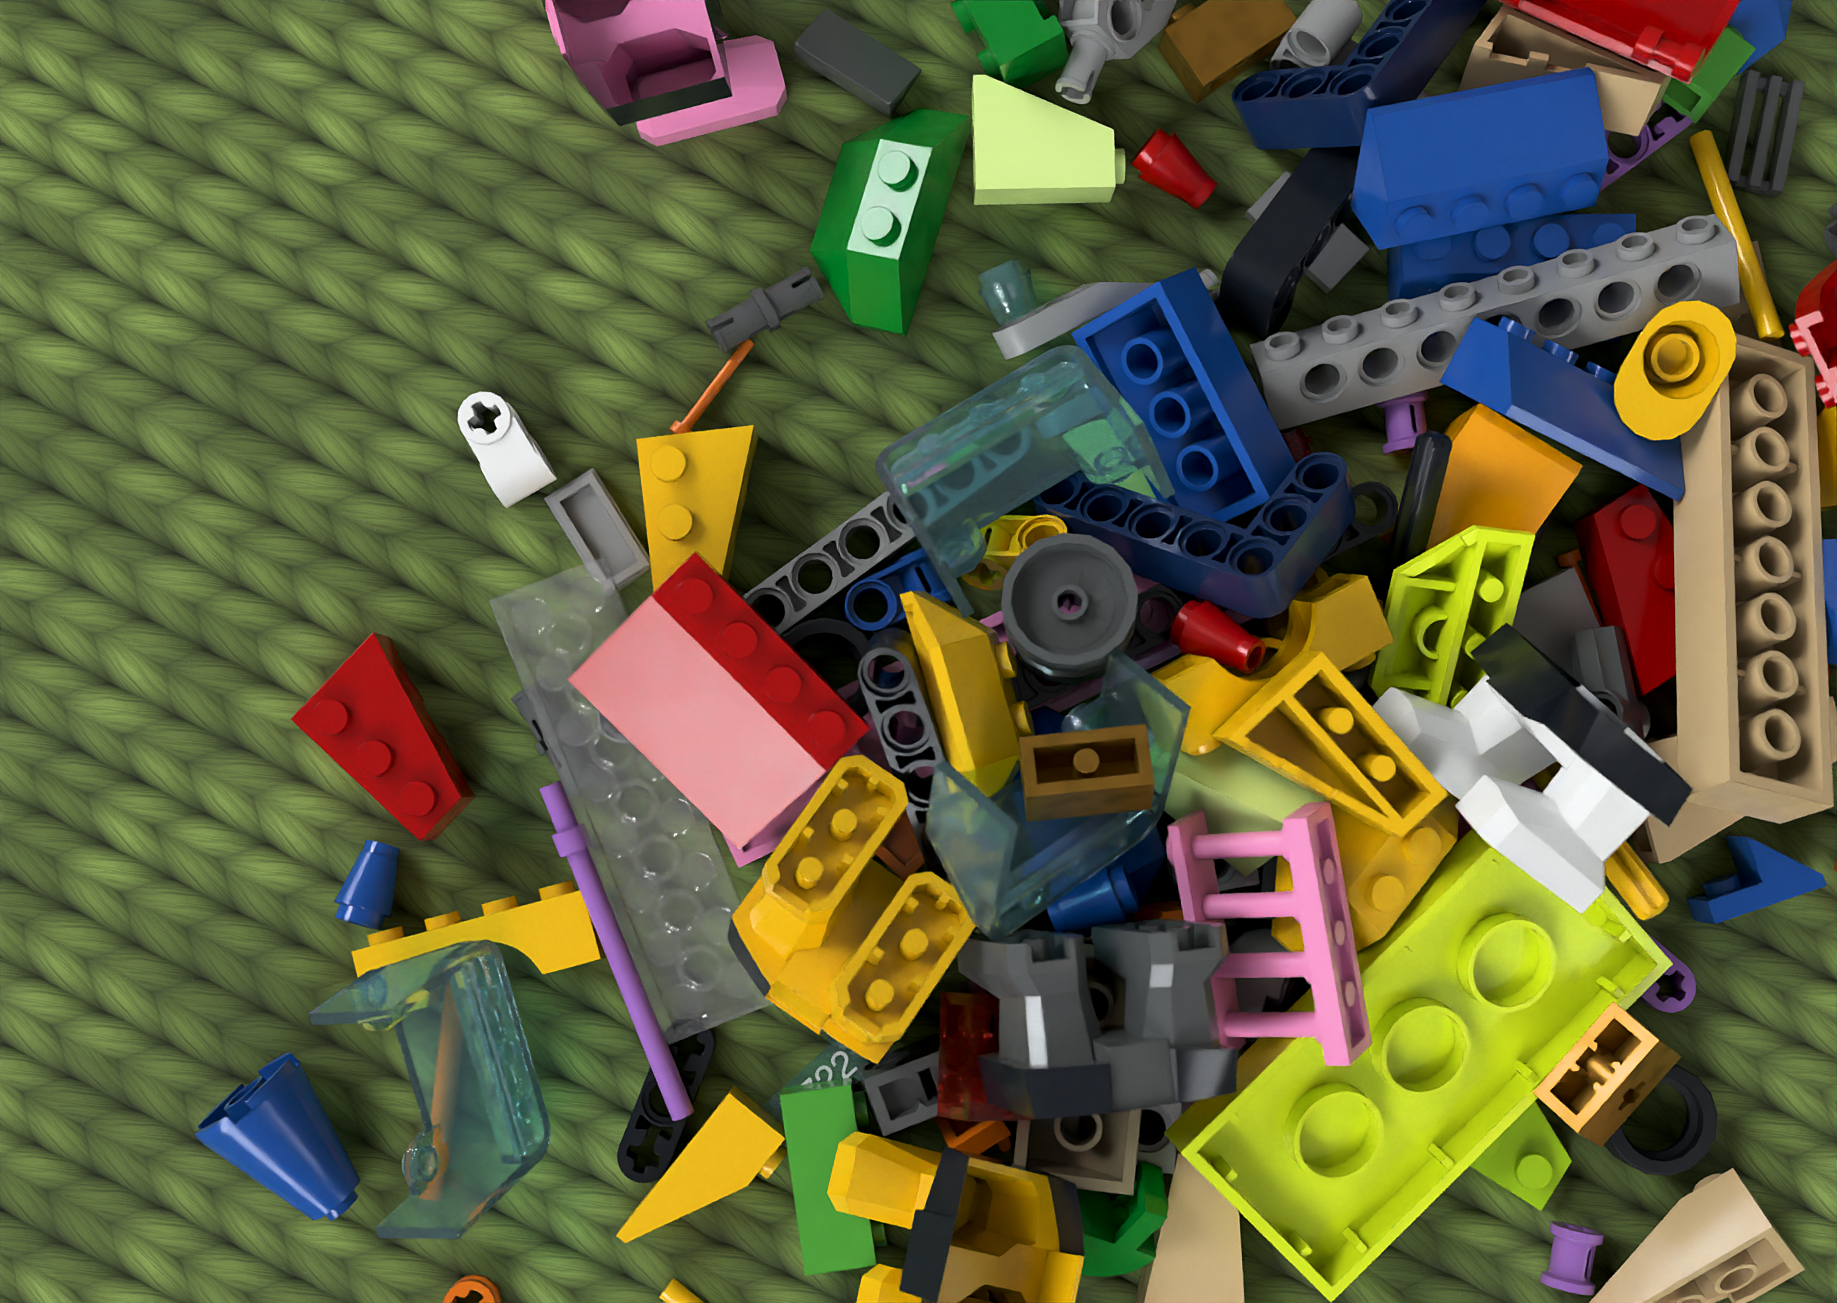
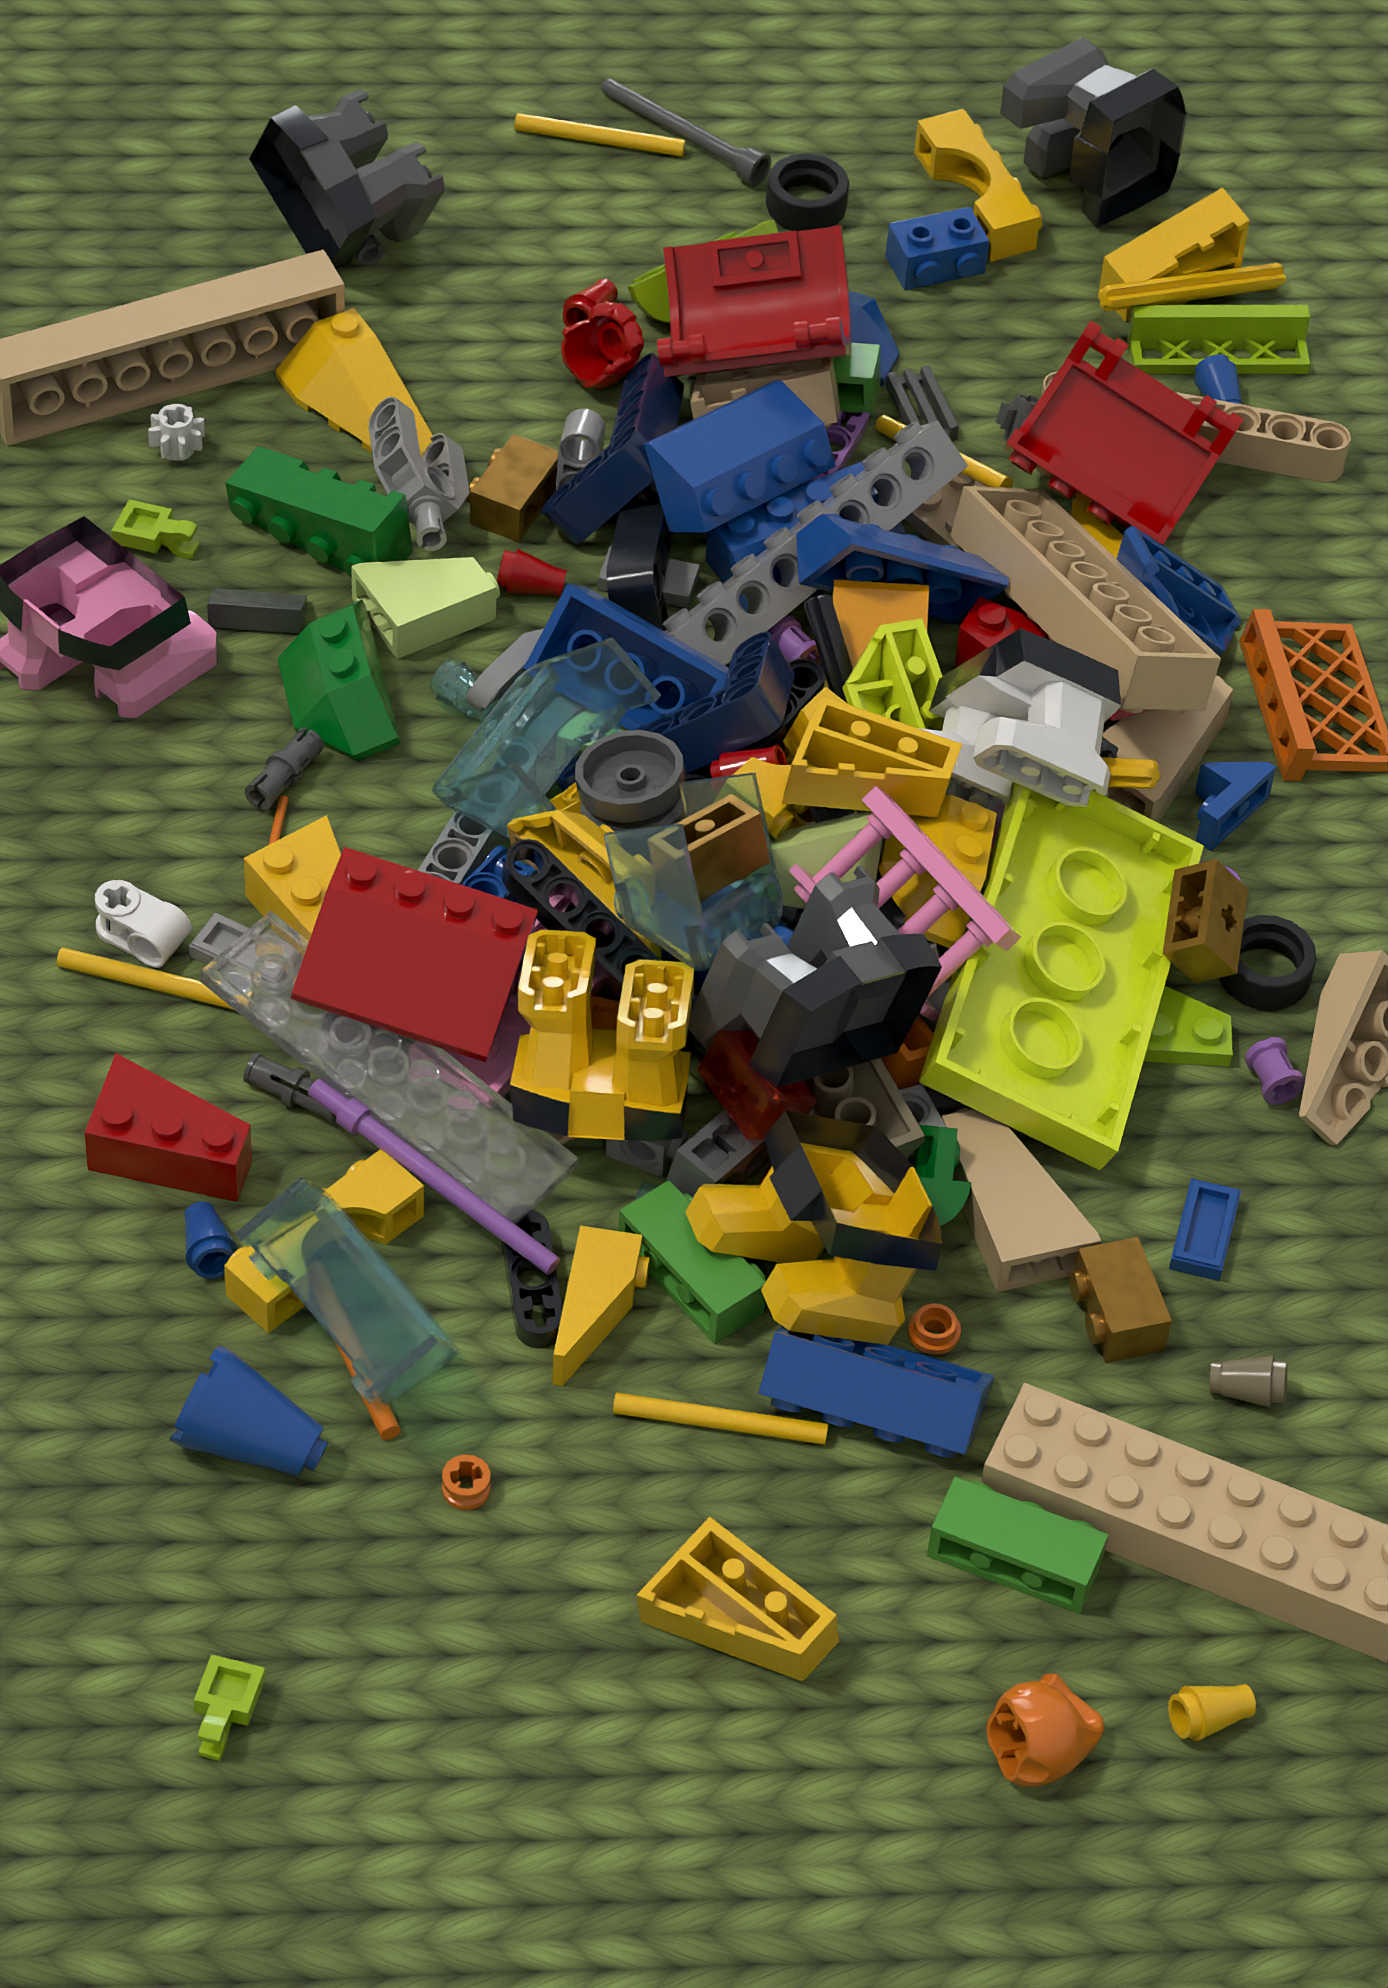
camera: 30 degrees left, 35 degrees down
(479, 507) = (137, 976): none -> yellow bar
(1674, 369) = (950, 507): yellow piece -> none

